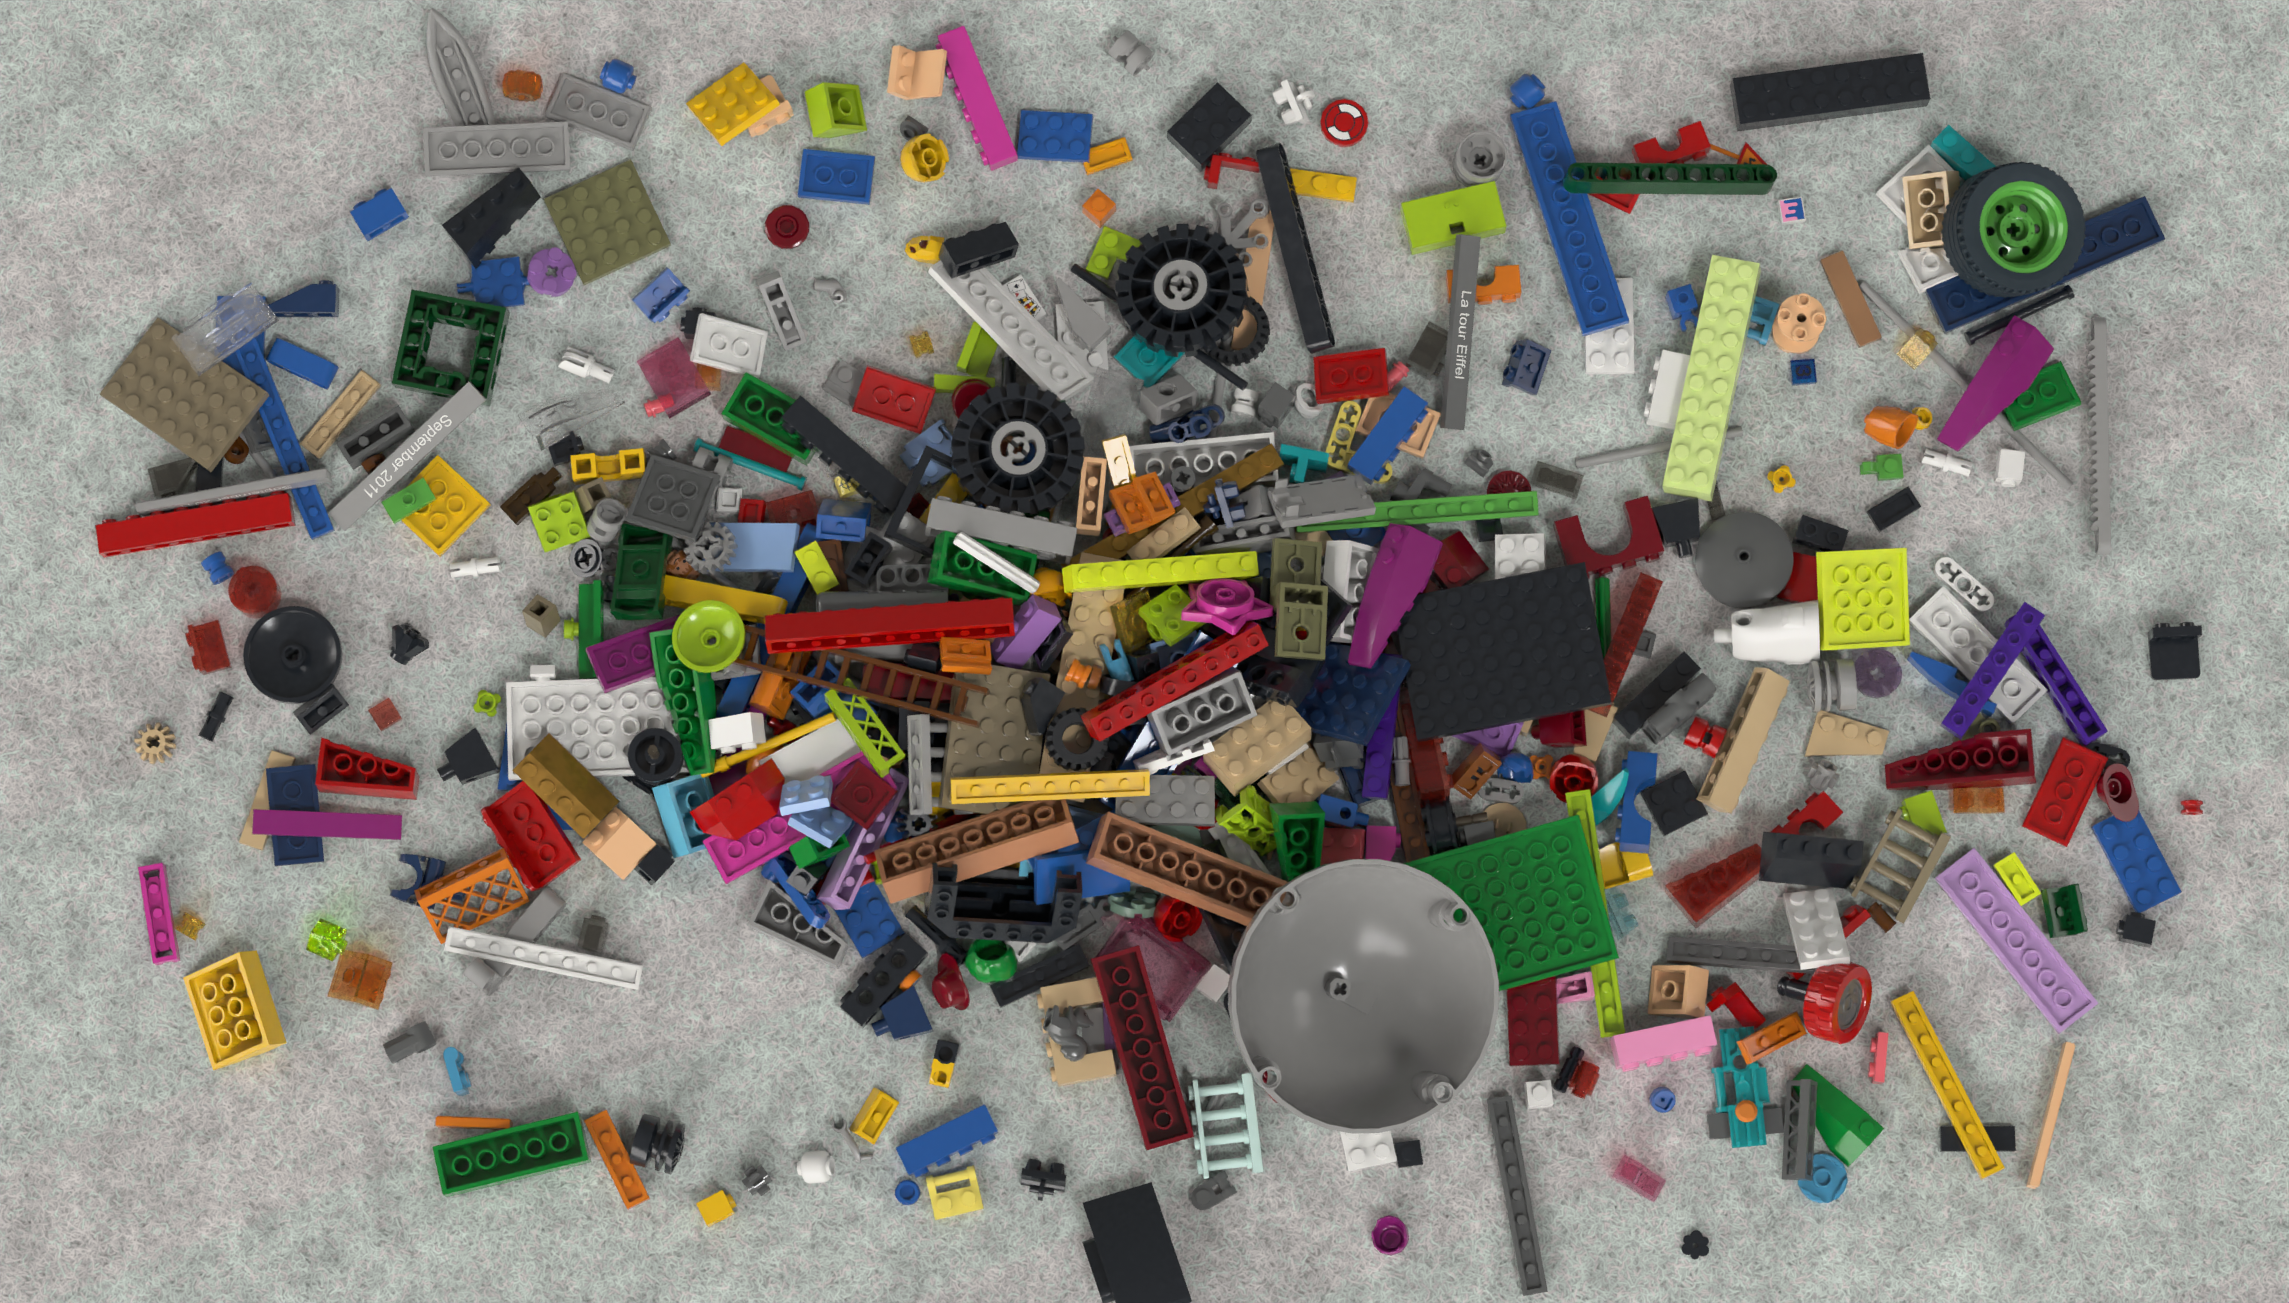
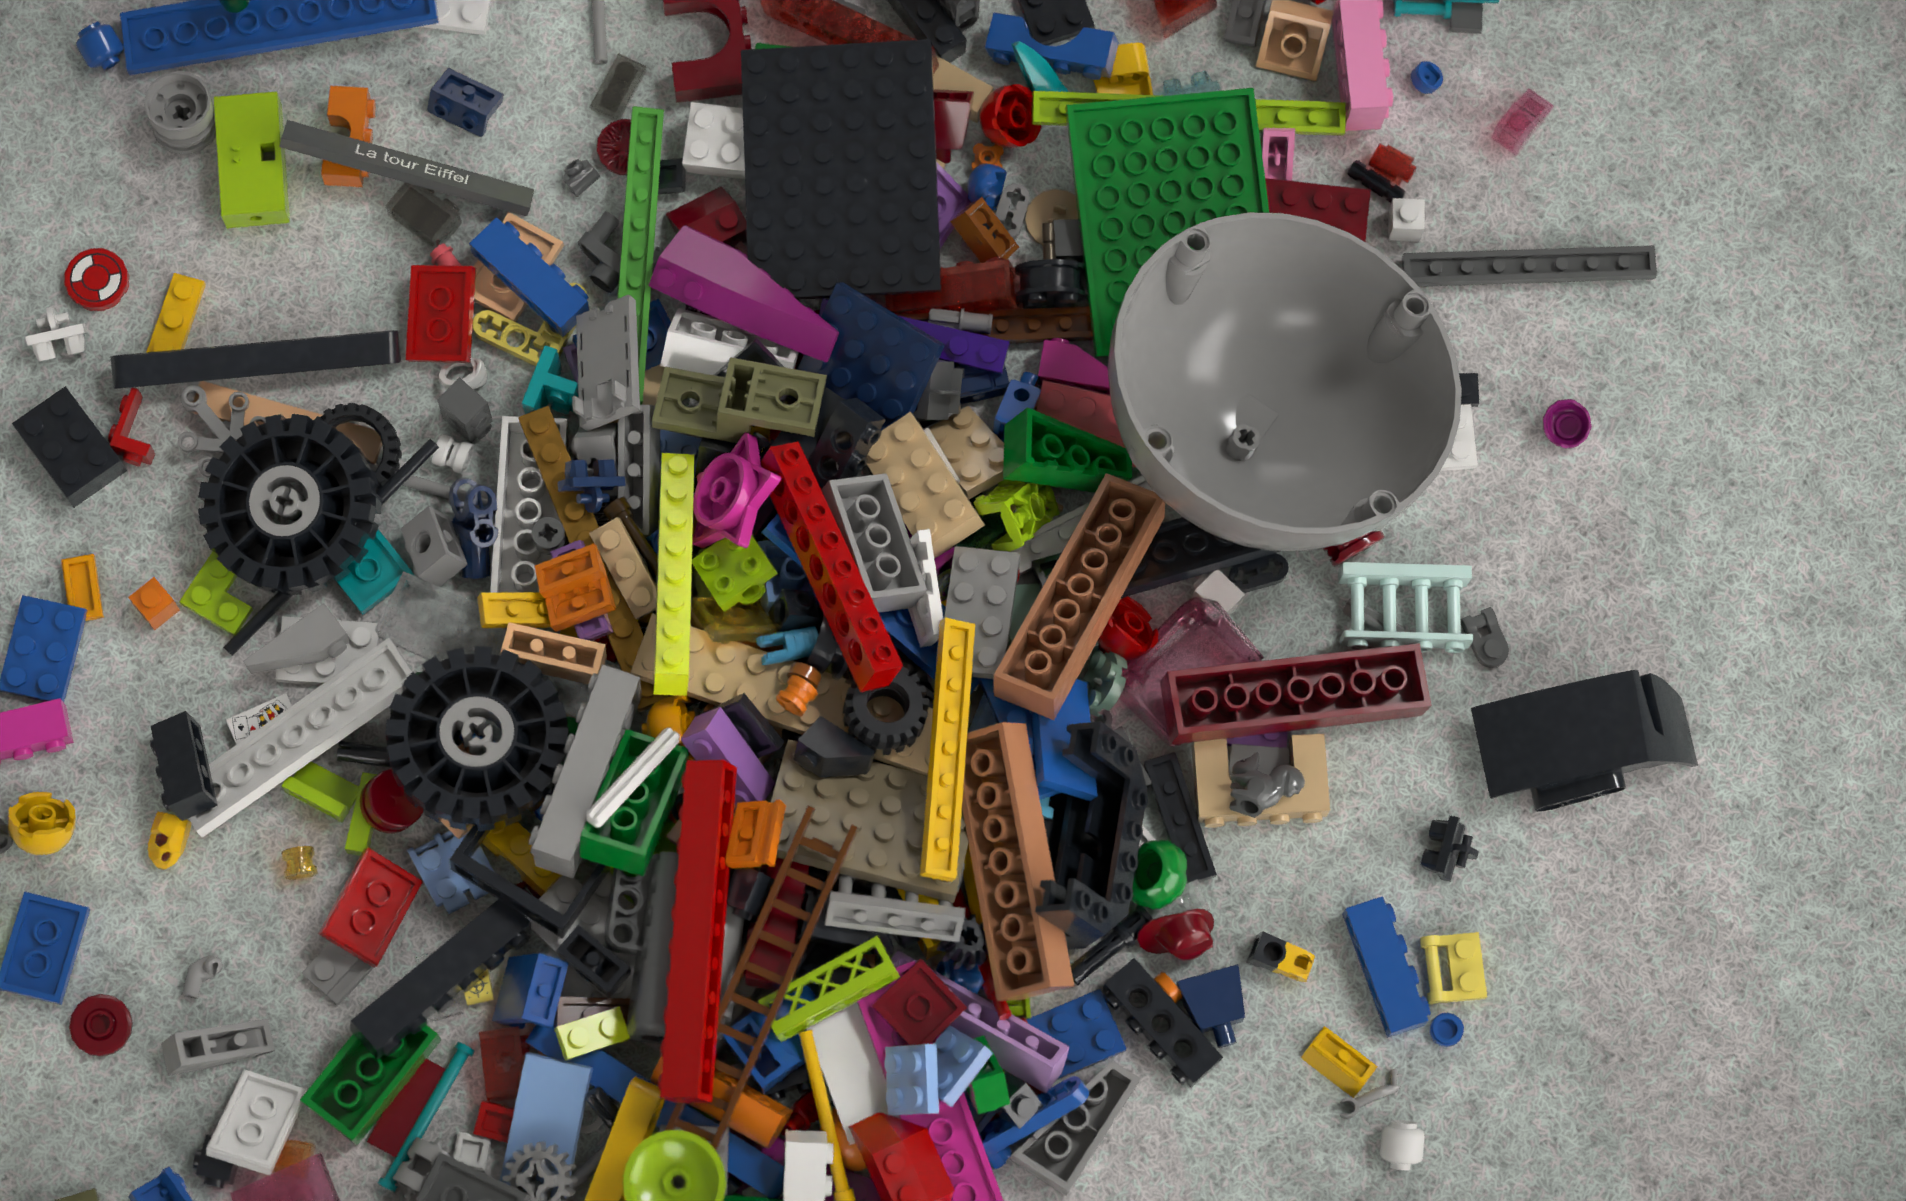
camera: 90 degrees left, 5 degrees down
(1702, 1242) = (1616, 61): black plant -> none

